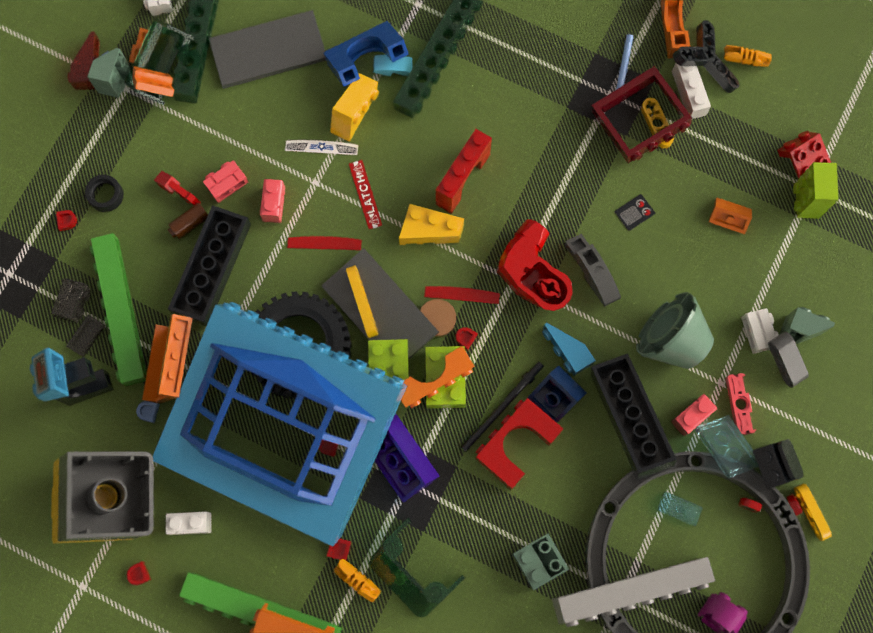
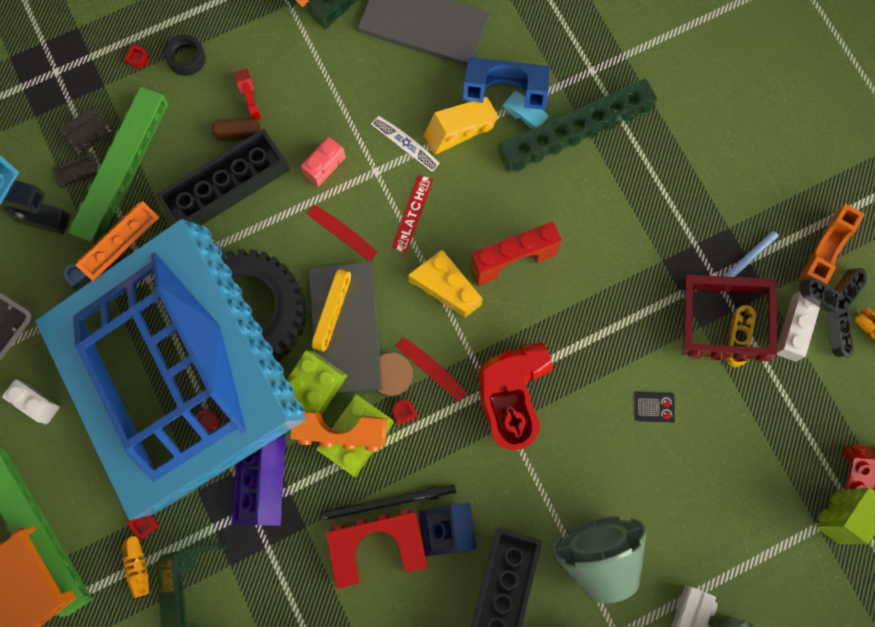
camera: 35 degrees right, 0 degrees up
(225, 181) = (295, 115): coral brick -> none
(572, 351) = (493, 500): dark azure slope -> none
(594, 268) = (572, 434): dark grey slope -> none
(731, 216) = (748, 477): orange panel -> none

